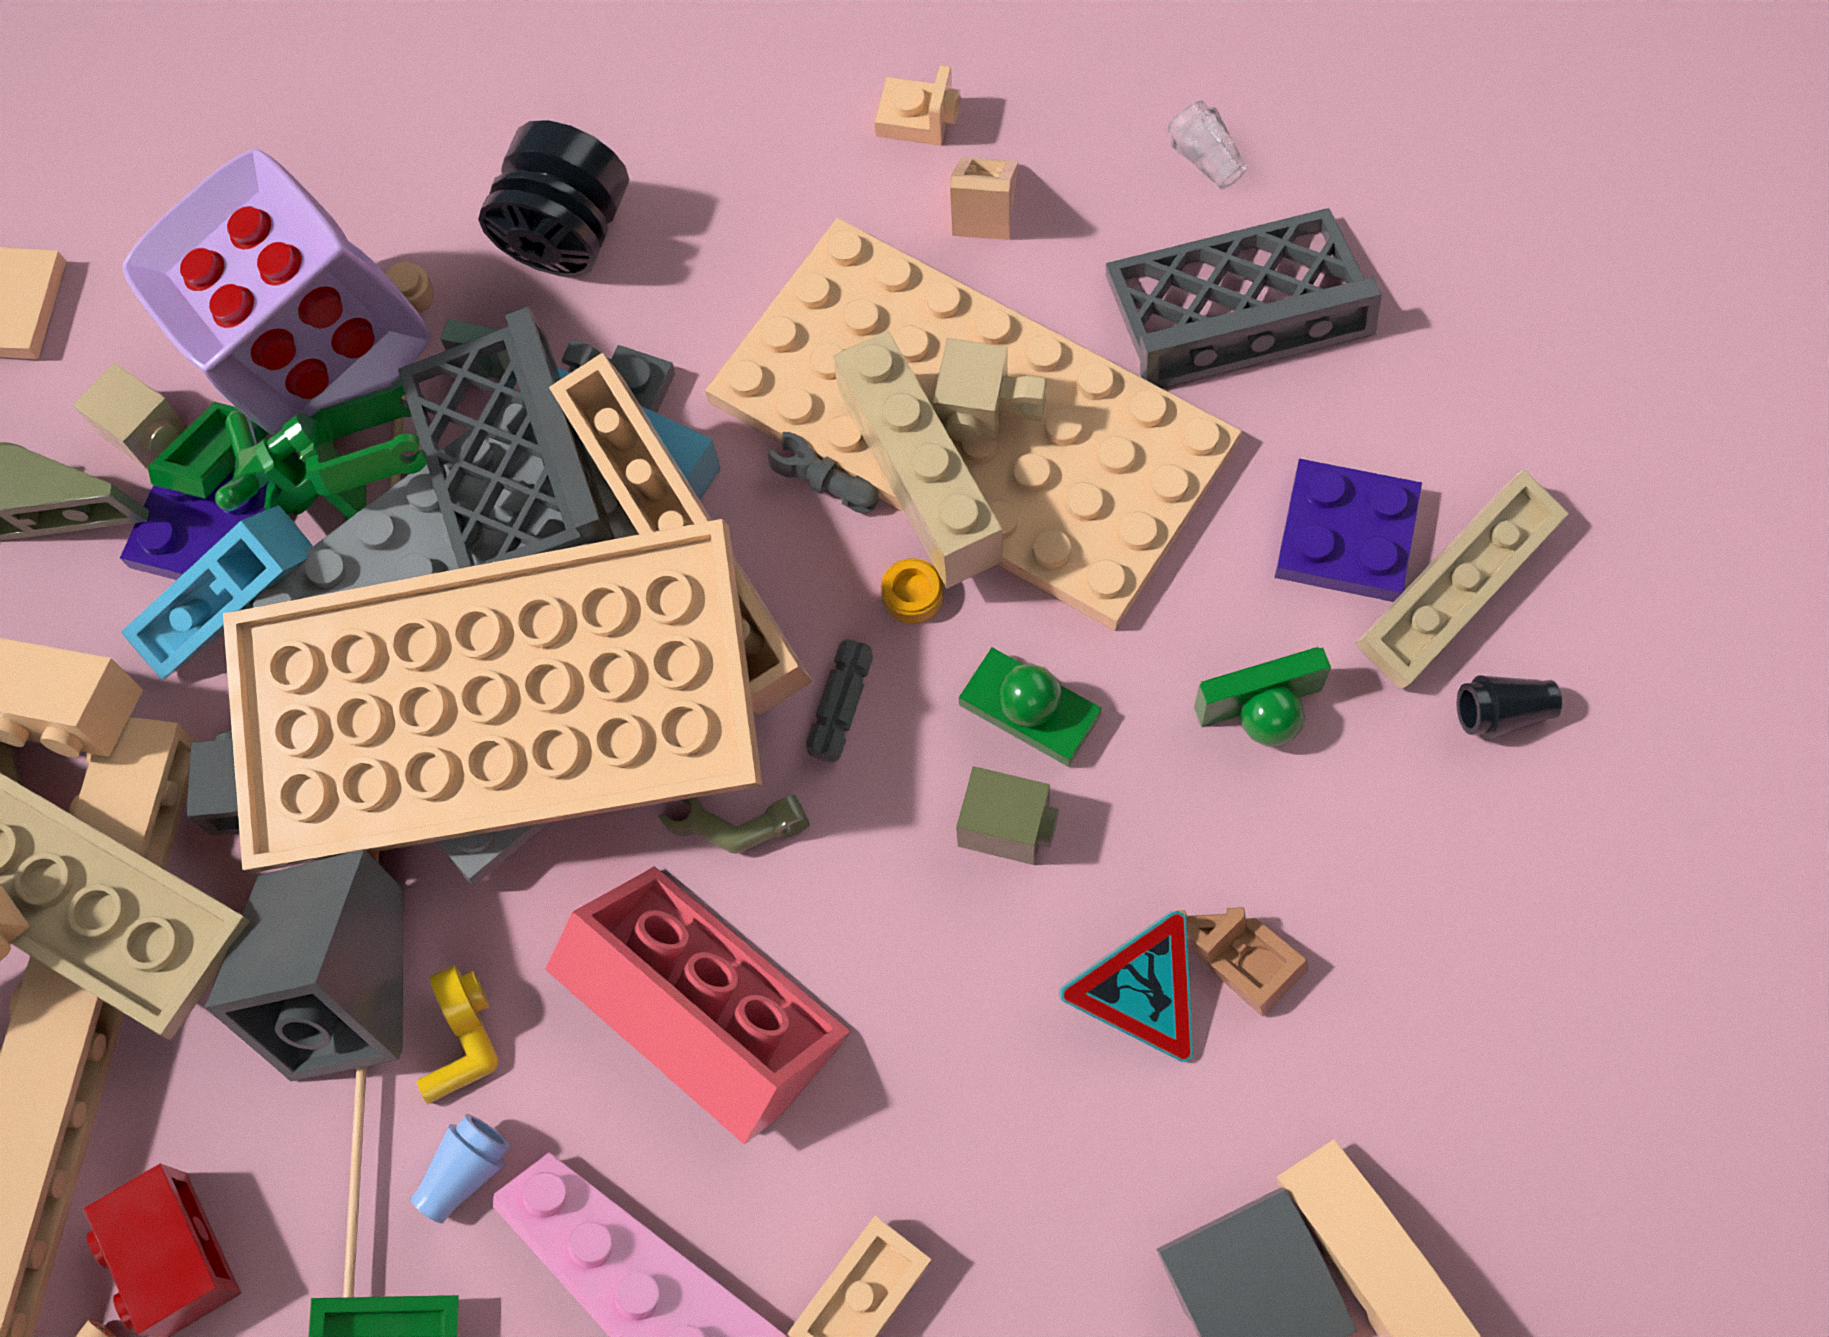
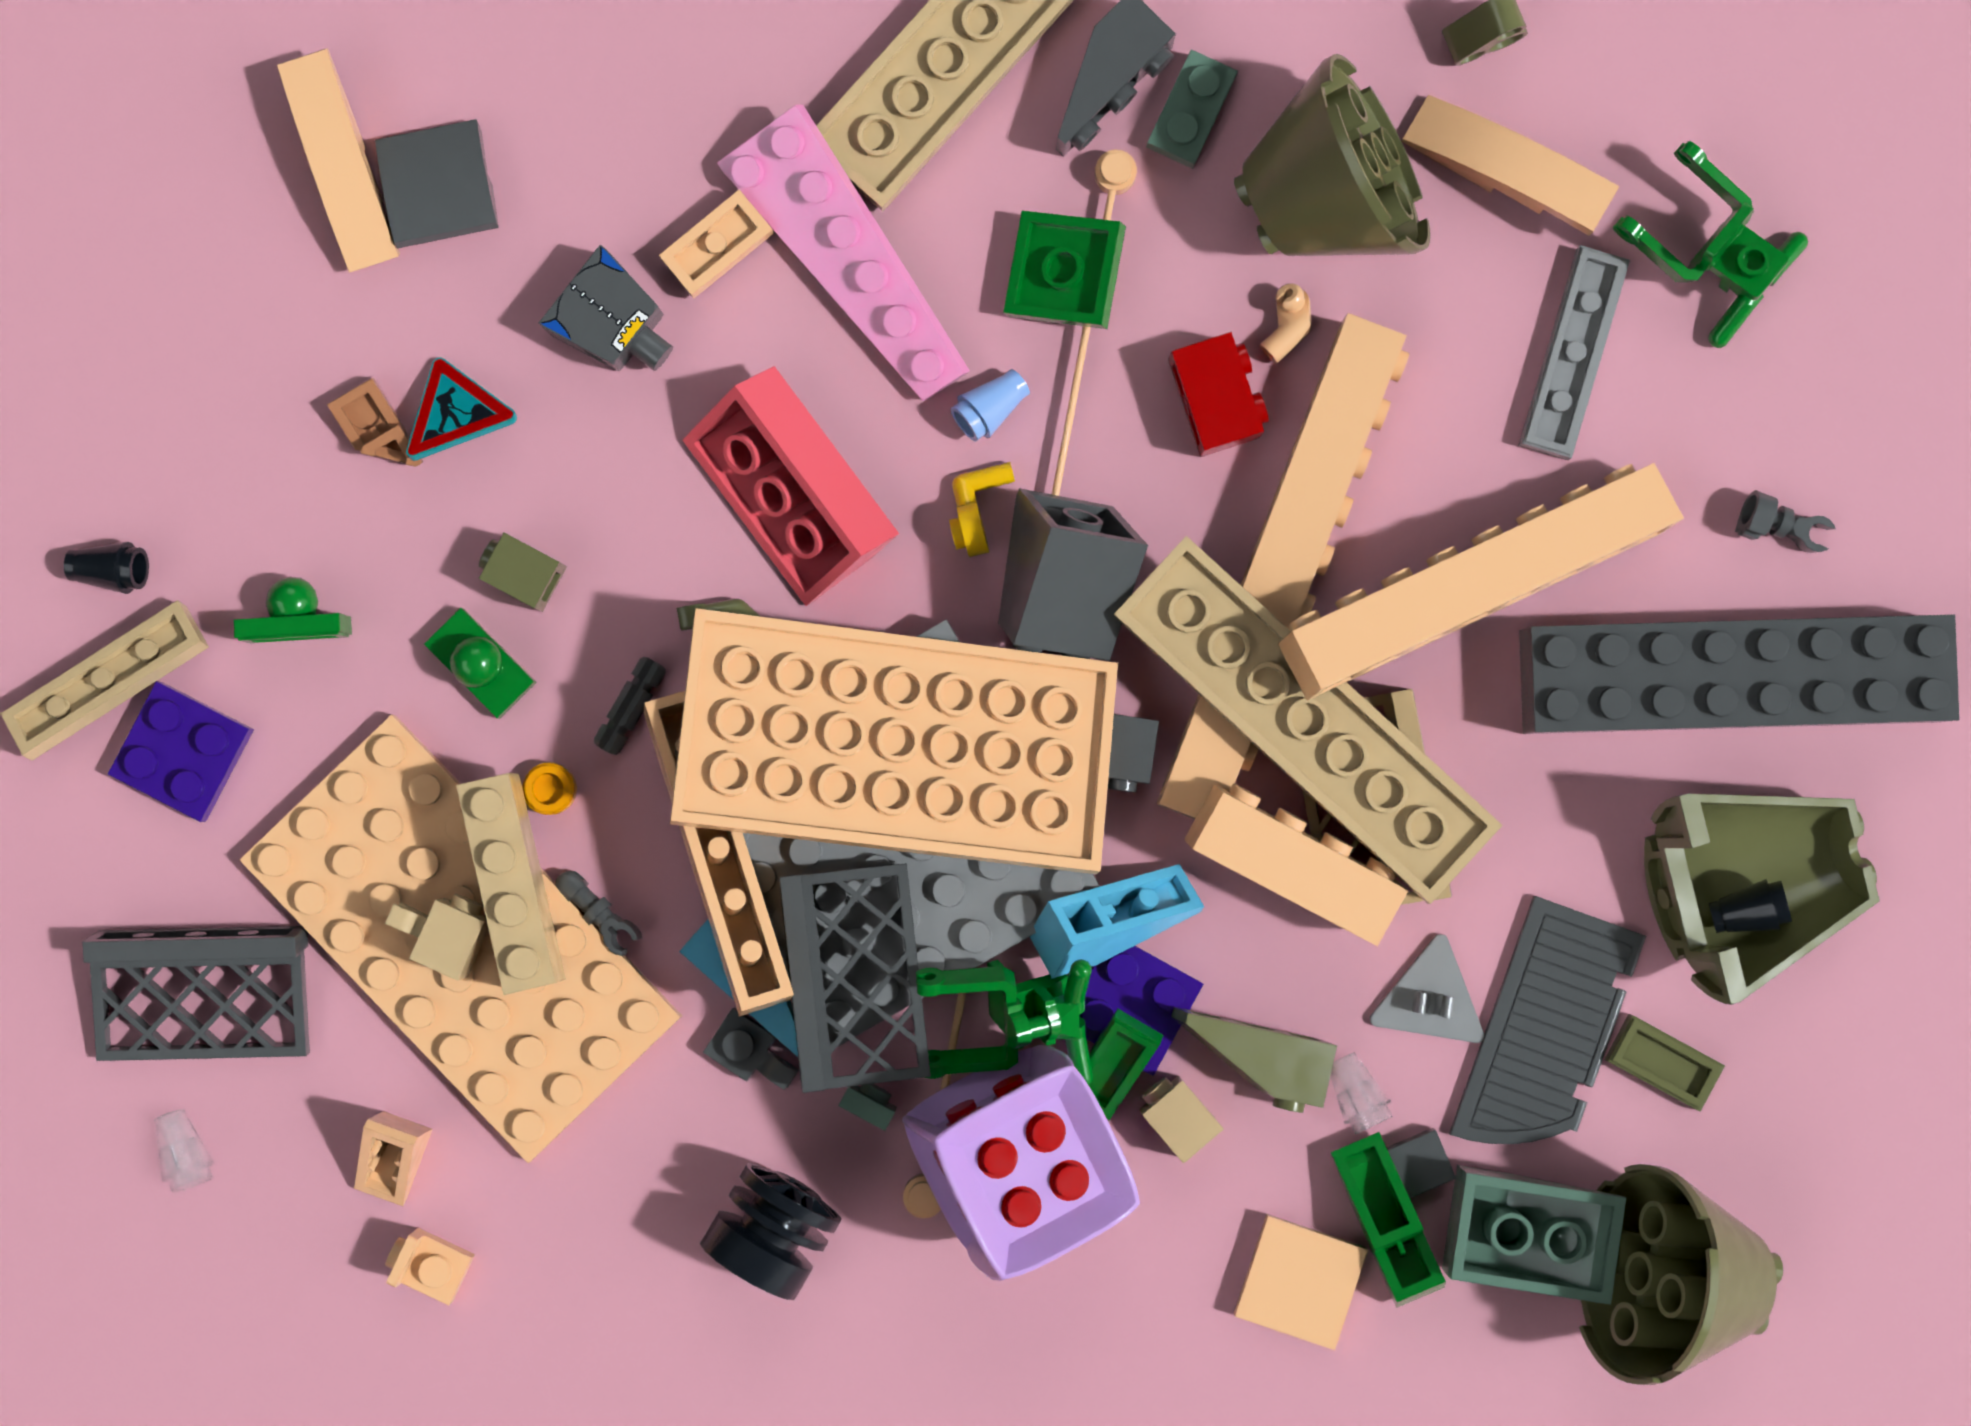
camera: 175 degrees left, 20 degrees up
(977, 1161) = (608, 316): none -> dark grey torso

